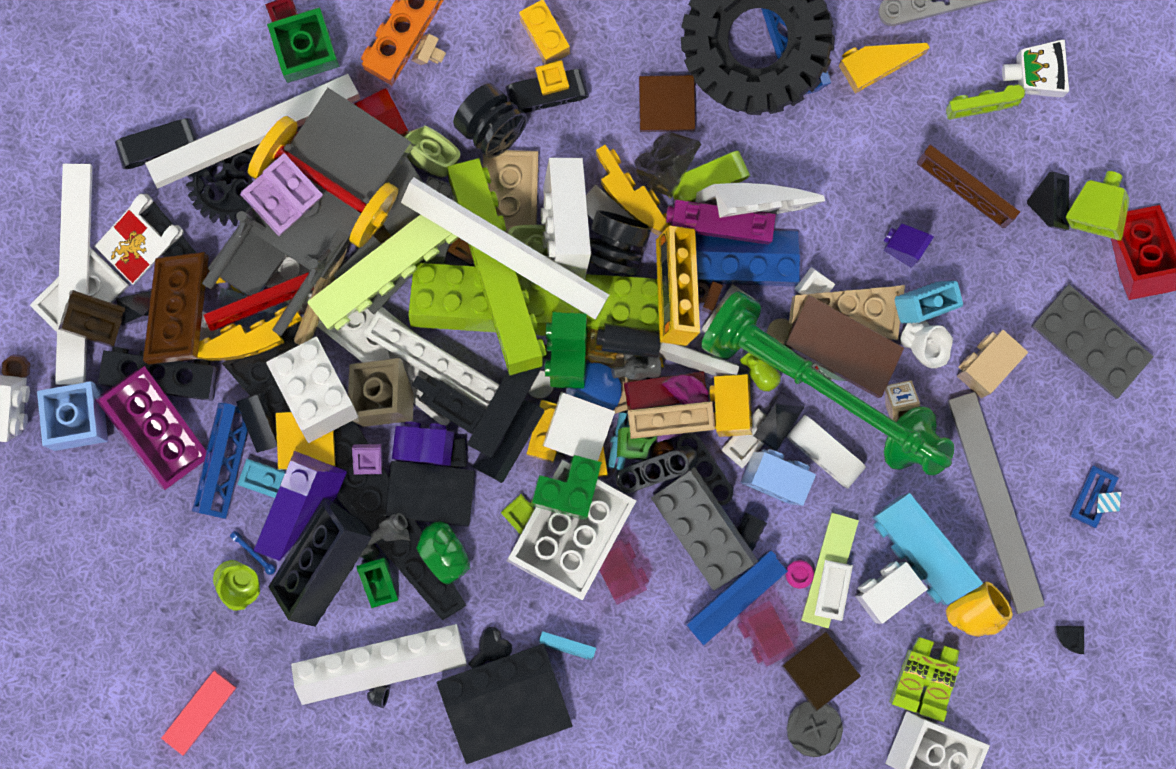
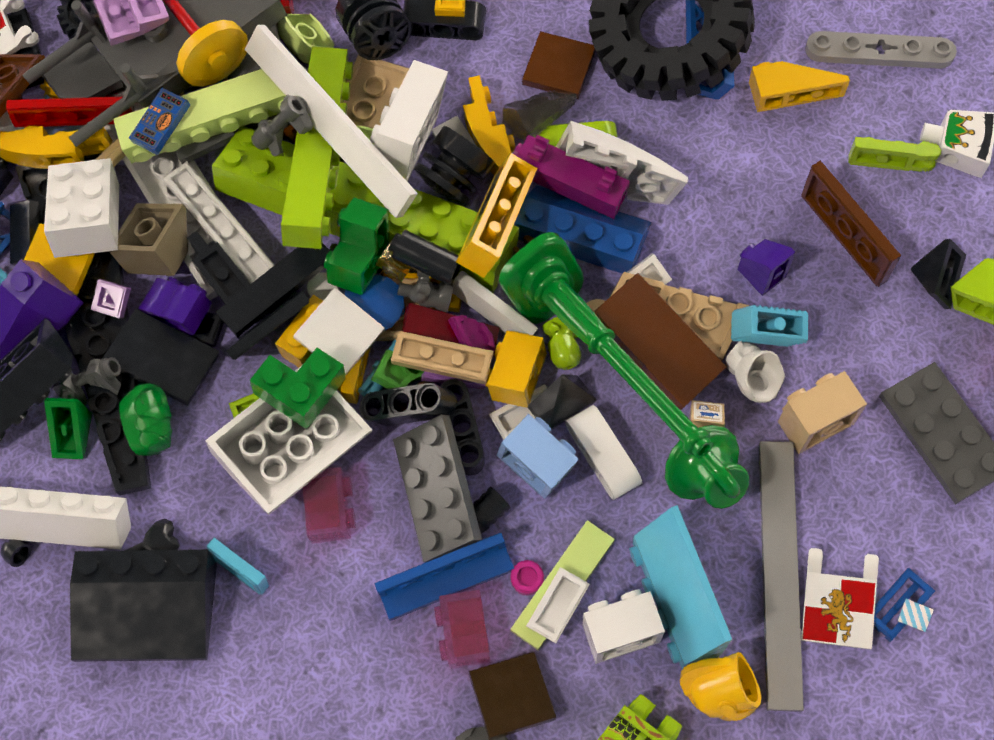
camera: 25 degrees right, 15 degrees down
(352, 293) = (159, 121): none -> tile
(452, 268) = (270, 132): none -> dark grey piece
(1050, 515) = (839, 607): none -> flag

